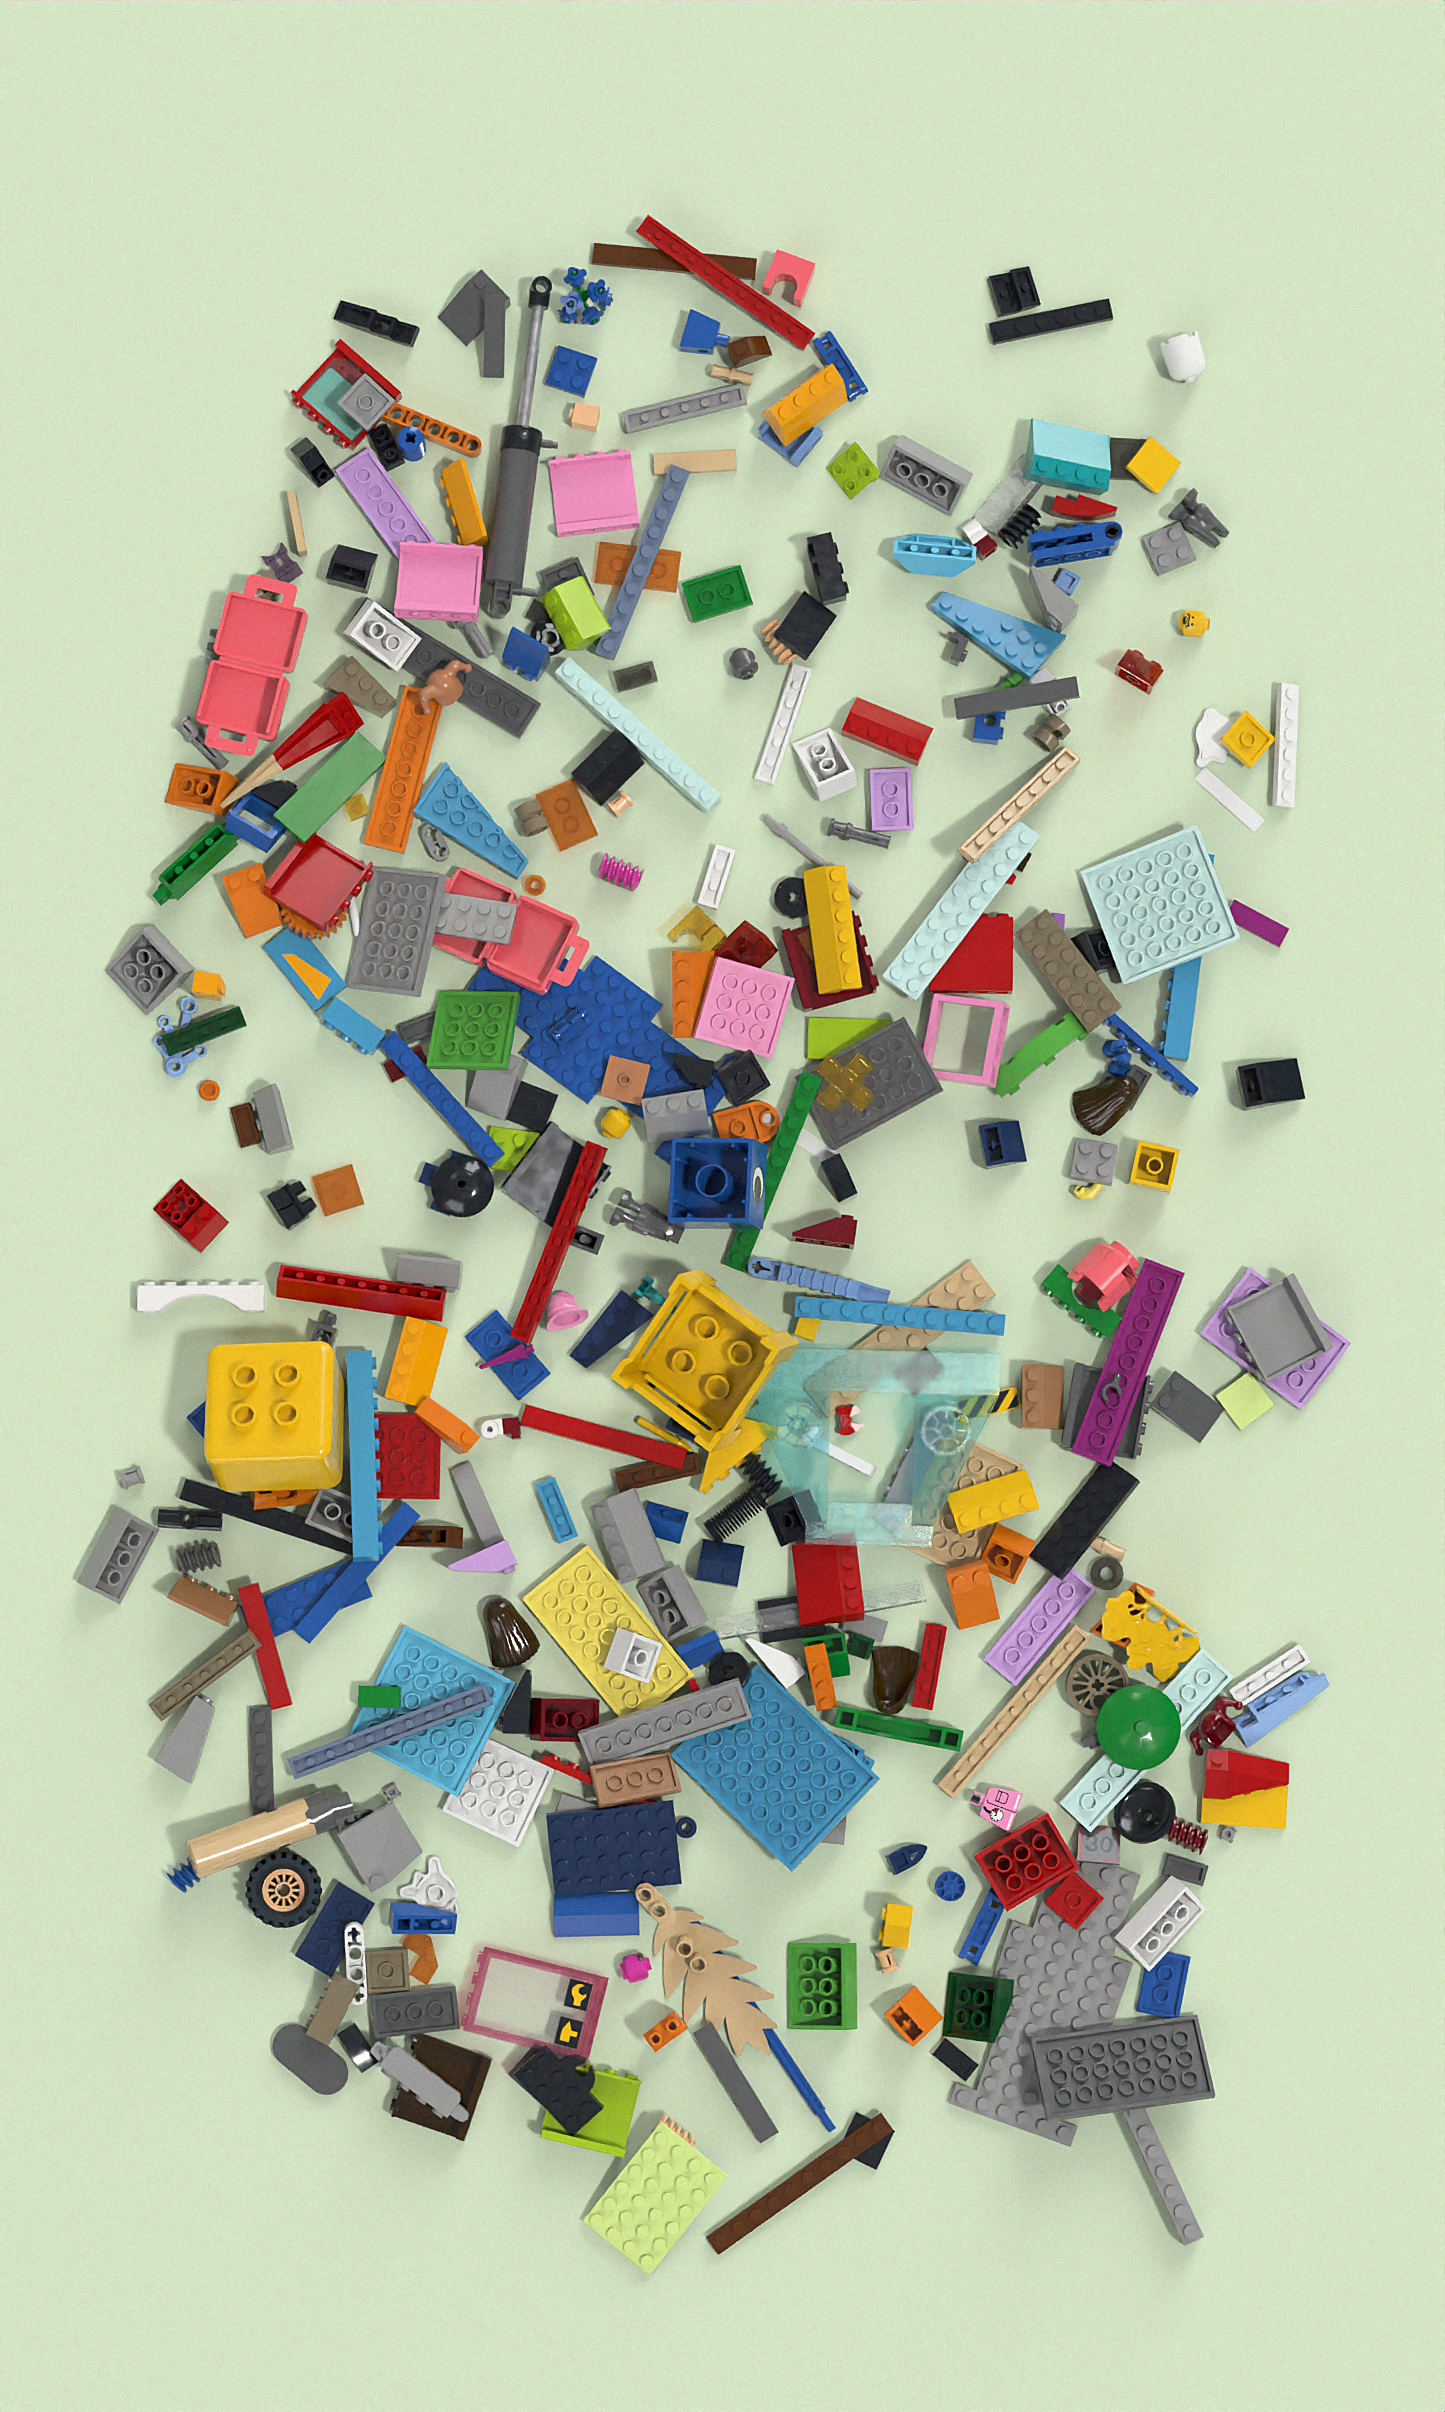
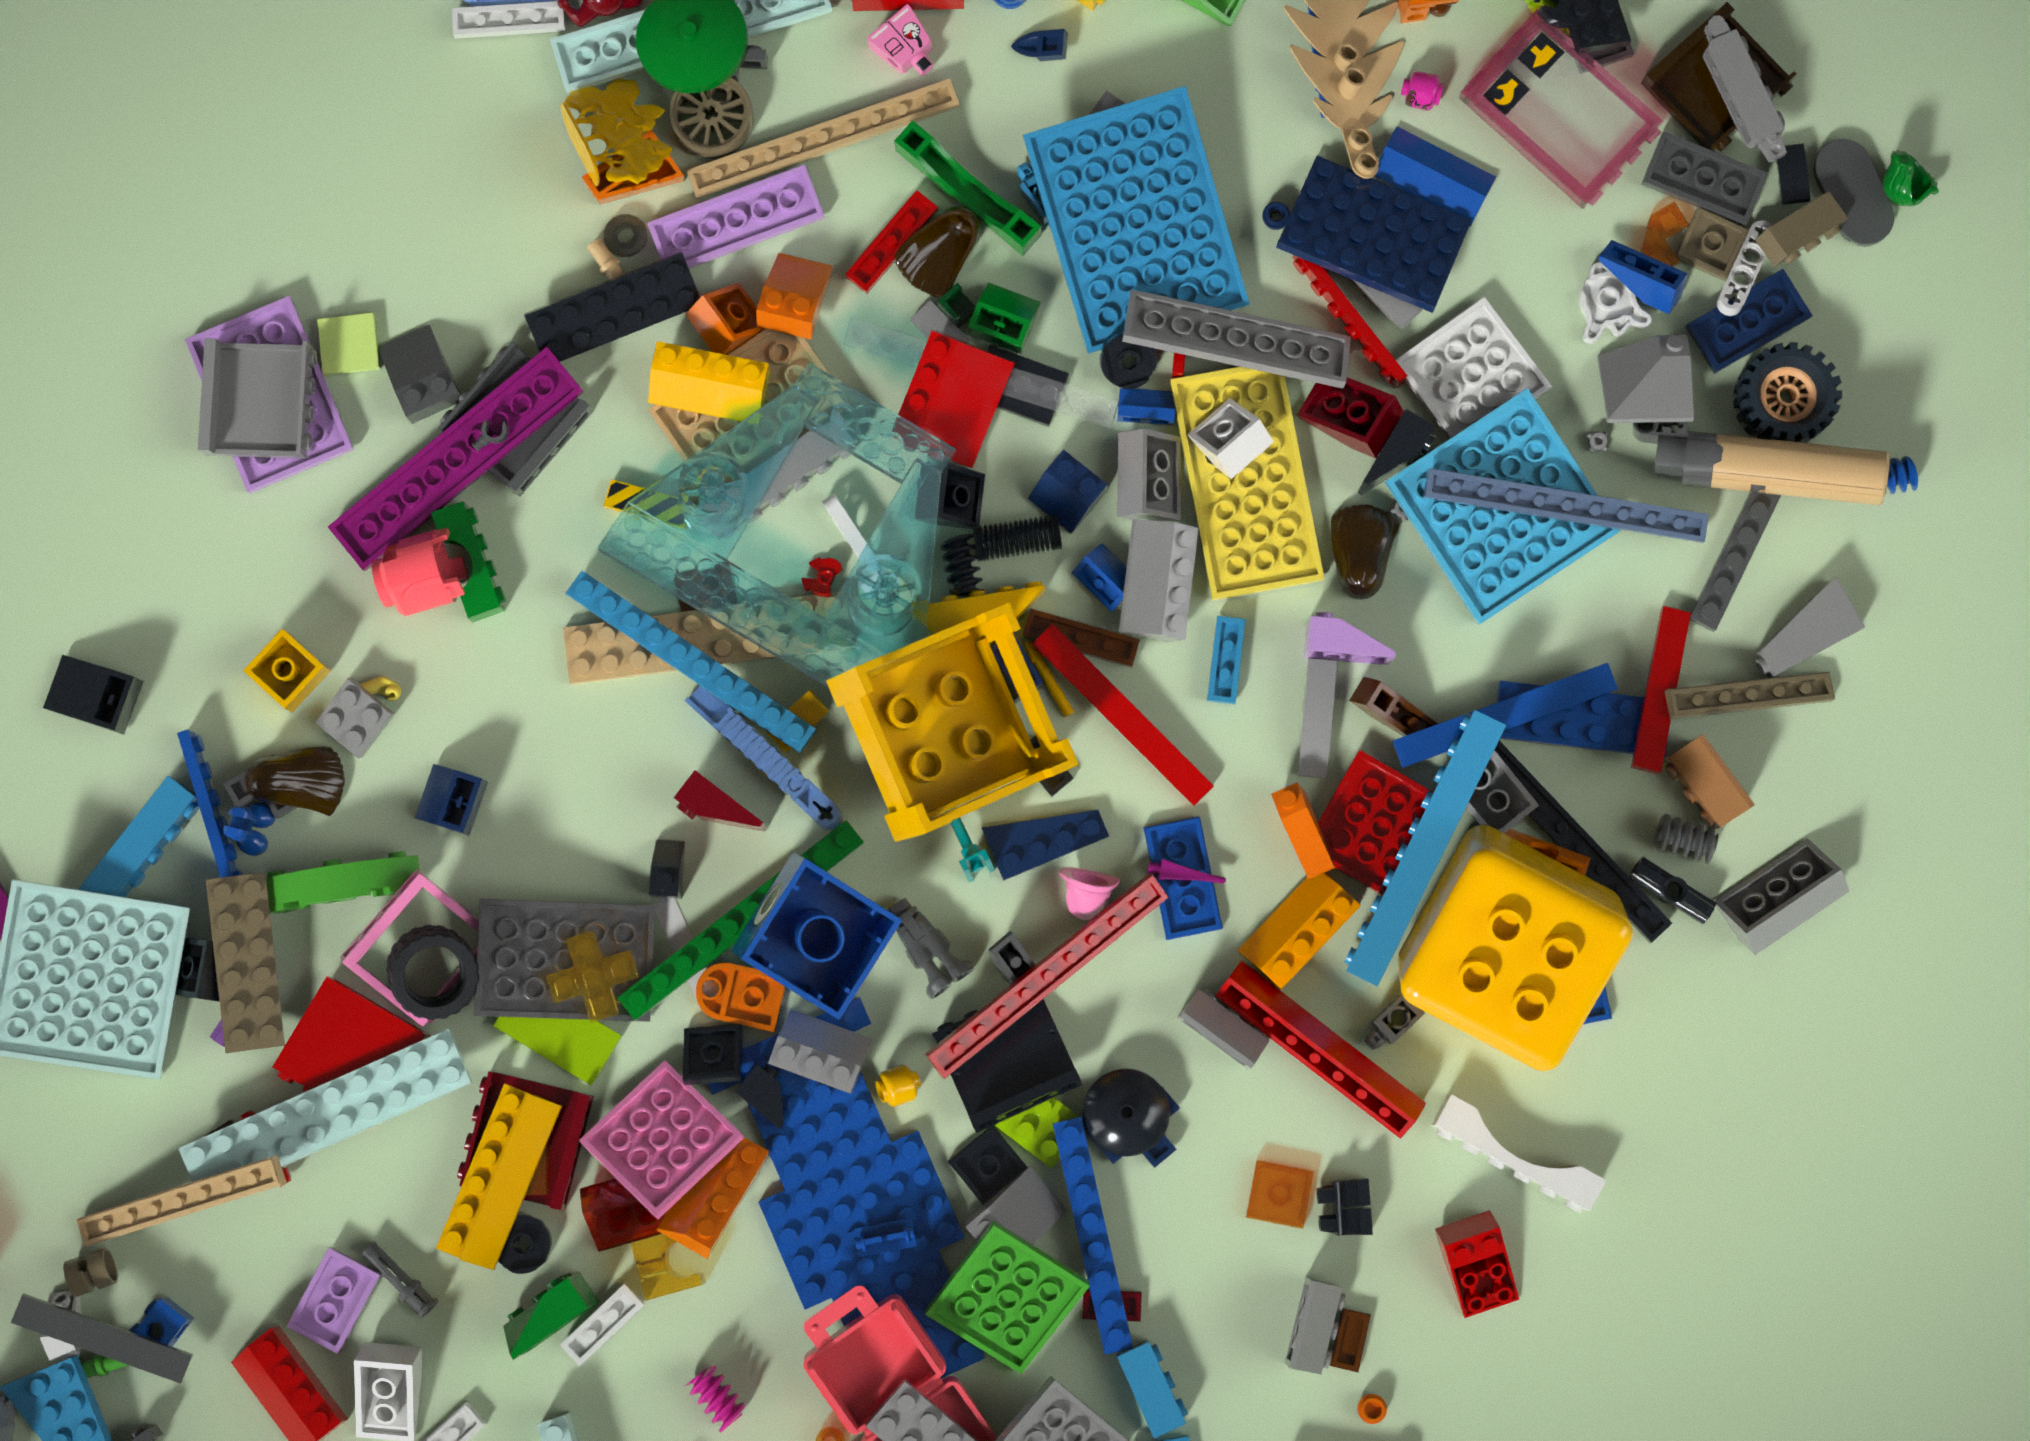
camera: 150 degrees left, 0 degrees up
(132, 1477) = (1716, 980): light grey bush -> none
(278, 2084) = (1907, 181): none -> green hair
(379, 1697) = (1556, 555): green tile -> none
(417, 1028) = (1073, 1342): dark grey tile -> none
(508, 1426) = (1236, 794): leg -> none
(625, 1080) = (856, 1131): nougat plate -> none
(635, 1779) = (1306, 297): medium nougat tile -> none
(752, 863) = (551, 1311): none -> green slope
(781, 831) = (490, 1338): light grey bar -> none
(782, 1665) = (1063, 340): white slope -> none
(820, 1677) = (1025, 290): orange arch -> none
(925, 1014) = (444, 1004): none -> black tyre
(1041, 1397) = (581, 477): medium nougat slope -> none

